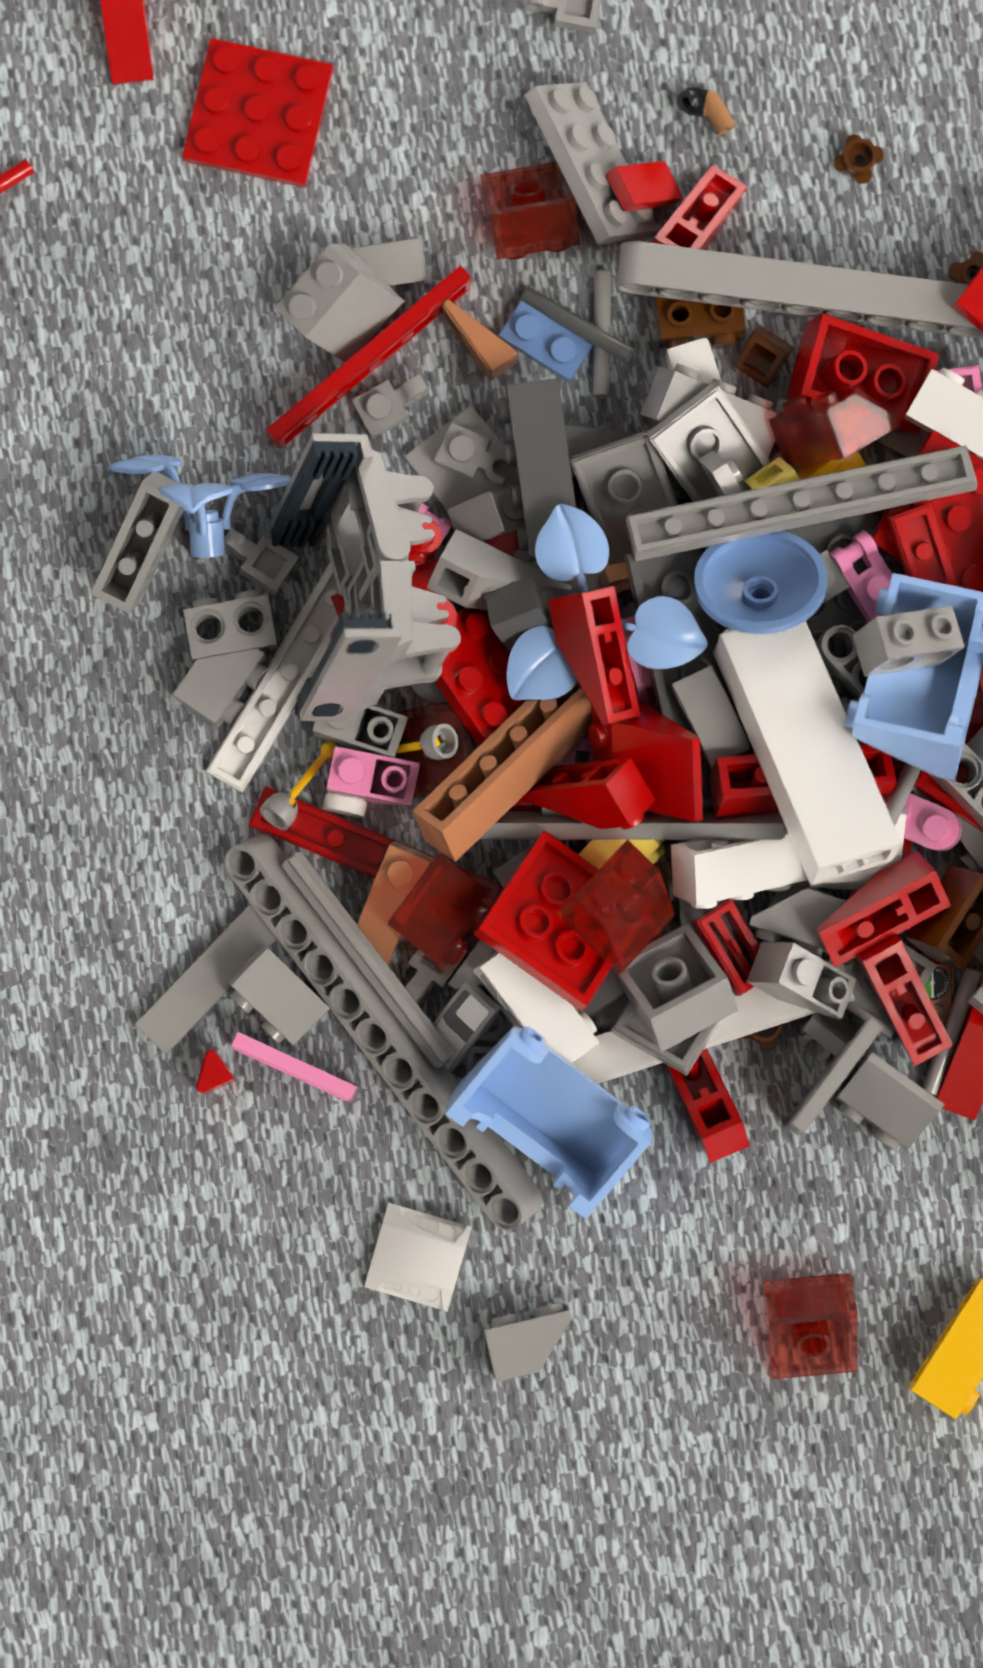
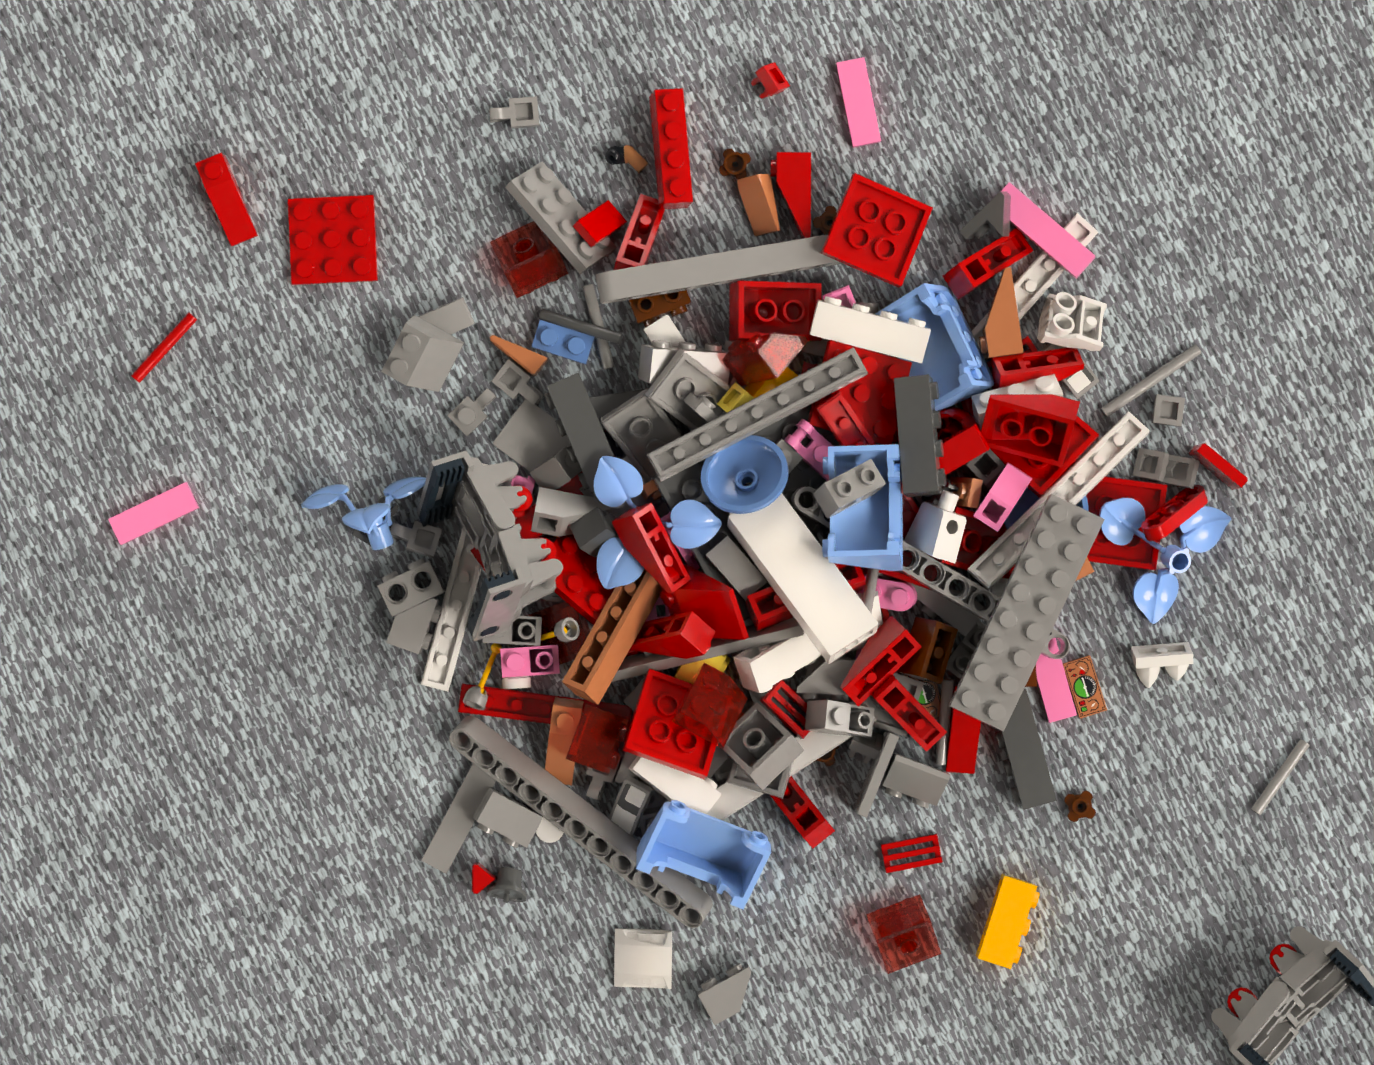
camera: 15 degrees left, 5 degrees up
(138, 545) = (336, 553): light grey brick -> none
(250, 1096) = (508, 885): none -> dark grey piece
(294, 1067) = (531, 860): bright pink tile -> none
(331, 1033) = (548, 832): none -> white tile
(368, 358) = (451, 385): red tile -> none
(368, 960) = (559, 779): light grey axle -> none
(461, 377) = (514, 381): none -> light grey plate
(466, 453) = (531, 432): light grey plate -> none
(763, 355) = (707, 312): reddish brown slope -> none
(774, 109) = (671, 149): none -> red brick
(879, 220) = (759, 203): none -> nougat slope
(889, 1213) = (935, 848): none -> red tile
(936, 207) = (794, 184): none -> red slope
(944, 54) = (772, 80): none -> red tile

